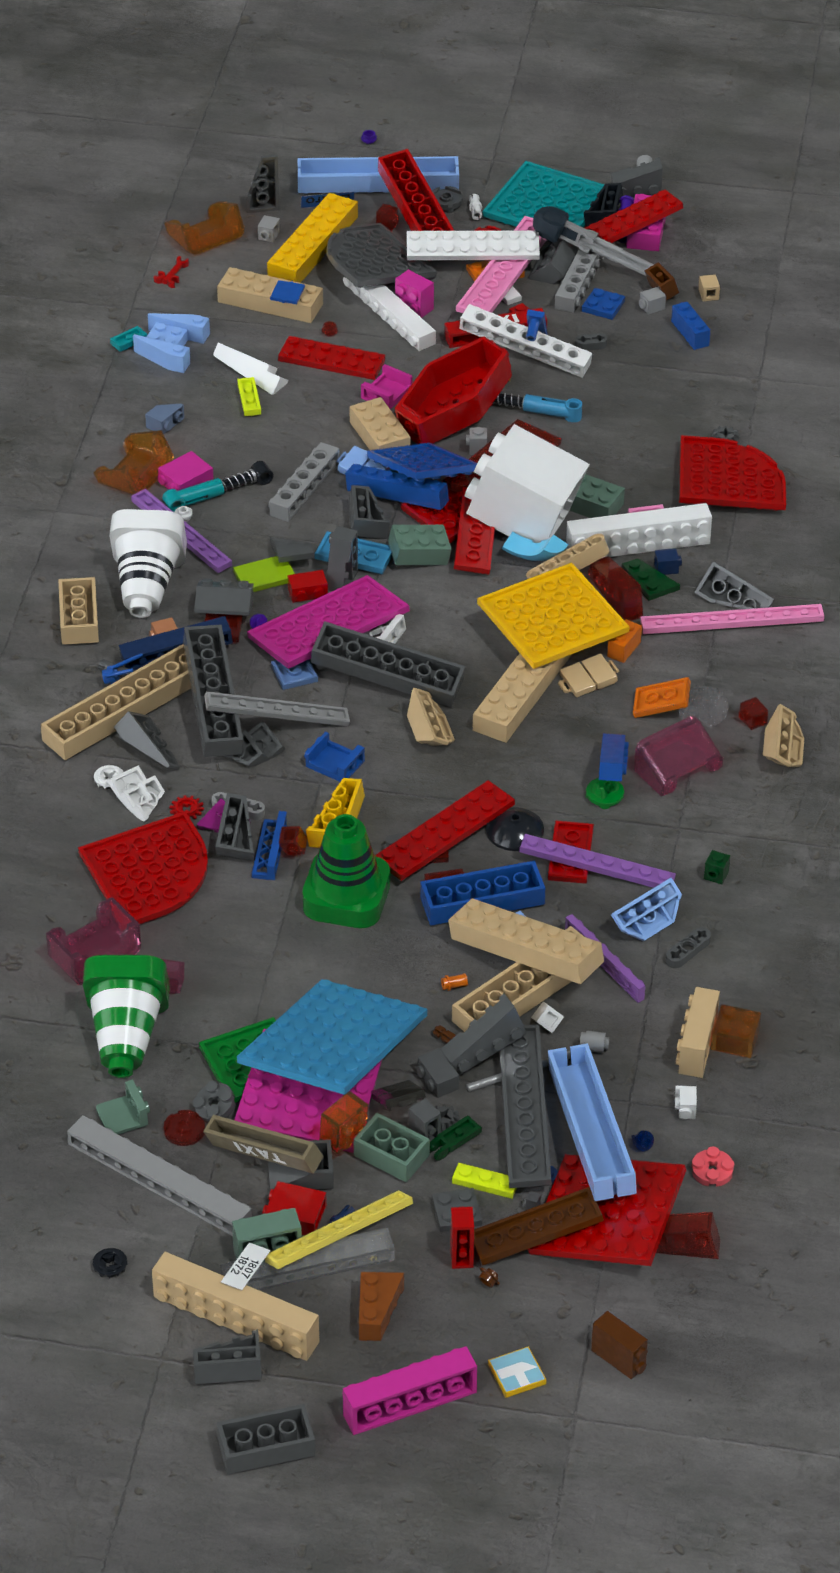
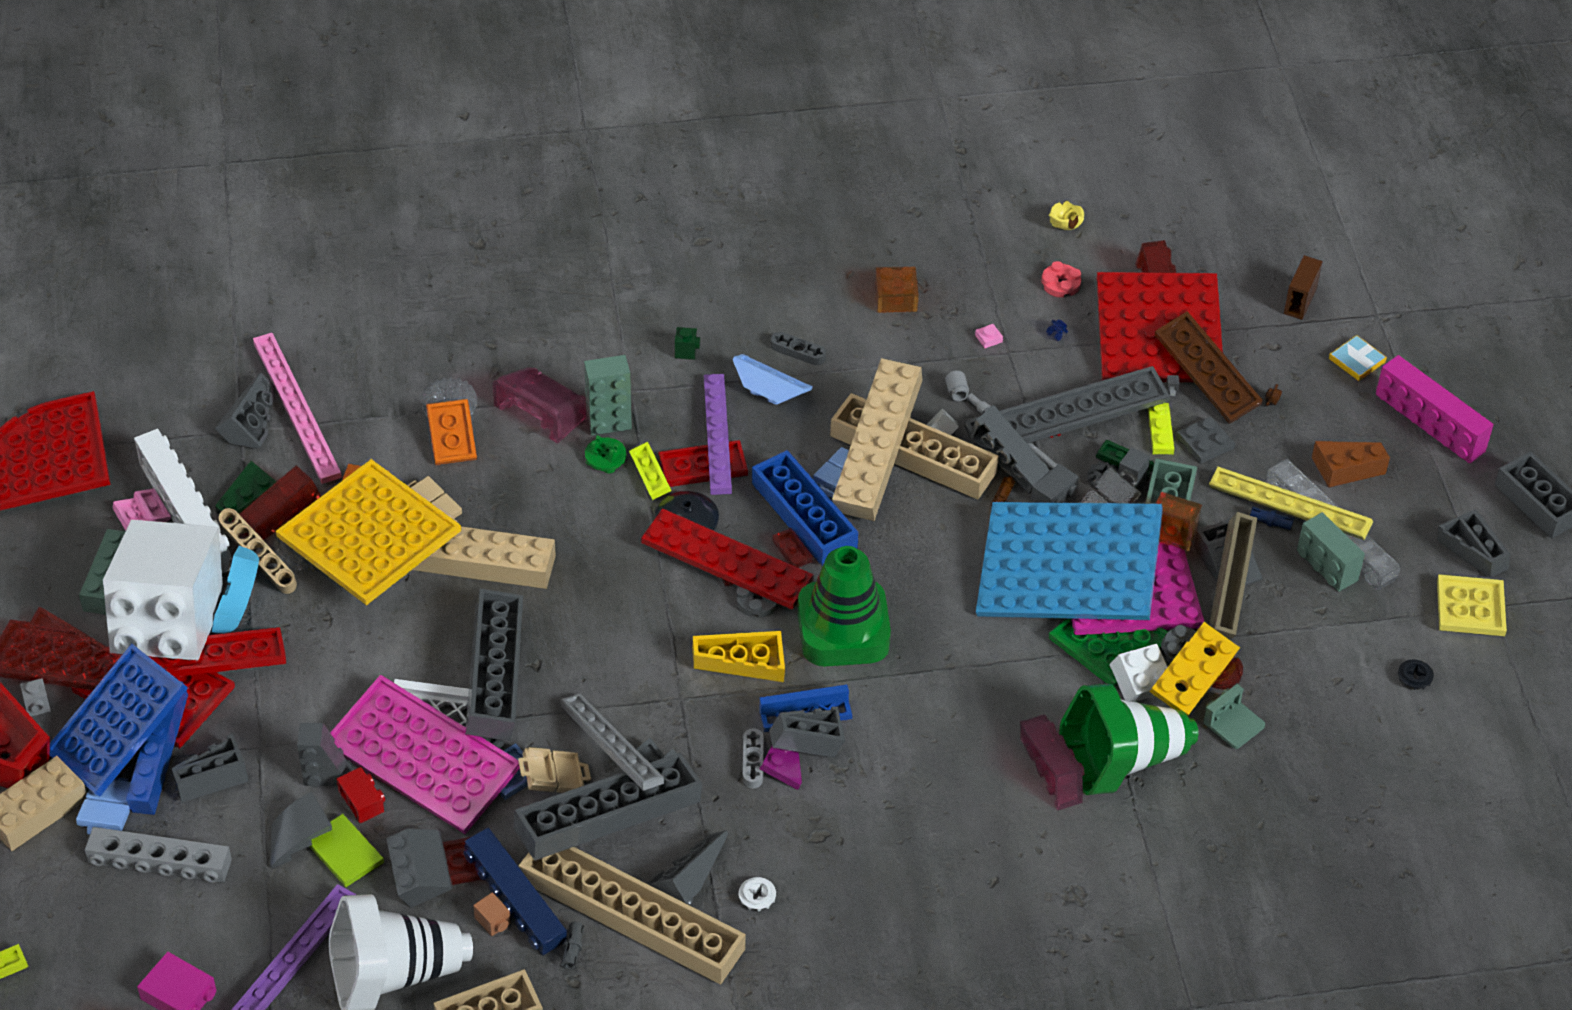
camera: 110 degrees left, 5 degrees up
(112, 674) = (591, 941): blue plant -> none
(112, 931) = (1027, 812): clear pink windscreen -> none
(137, 792) = (771, 857): white slope -> none
(149, 866) = (886, 808): red plate -> none
(156, 1174) = (1296, 667): light grey brick -> none
(165, 1334) = (1471, 605): none -> light yellow plate
(176, 1086) = (1194, 669): none -> yellow bracket
(185, 512) = (251, 976): white plate -> none
(194, 1055) = (1138, 672): none -> white brick
(195, 807) = (770, 799): red gear -> none
(243, 1311) = (1421, 554): tan brick -> none
(245, 1266) = (1389, 541): white sticker -> none
(257, 620) = (442, 825): dark purple plate -> none
(258, 473) = (230, 980): piece -> none
(277, 680) = (552, 770): none -> tan piece
(293, 840) = (797, 680): clear red brick -> none
(308, 1204) = (1277, 549): red brick -> none
(333, 758) = (646, 688): blue panel -> none
(371, 555) = (279, 769): dark azure plate -> none
(419, 544) = (260, 698): sand green brick -> none
(428, 720) = (569, 615): tan wedge -> none
(454, 981) = (931, 511): orange pin -> none
(462, 1237) = (1258, 405): red brick -> none
(571, 812) = (650, 470): none -> neon yellow plate
(592, 1123) = (1076, 347): light blue piece -> none
(612, 964) = (859, 386): medium lavender plate -> none
(613, 757) = (569, 443): blue brick -> none
(646, 778) = (608, 395): none -> sand green brick
(655, 1089) = (989, 336): none -> bright pink plate
(667, 561) = (216, 477): dark blue brick -> none
(686, 1101) = (999, 307): white brick -> none
(697, 1032) = (917, 307): tan brick -> none
(753, 713) = (445, 360): clear red brick -> none
(784, 738) = (486, 328): tan wedge -> none
(796, 1190) = (1066, 216): none -> light yellow hair

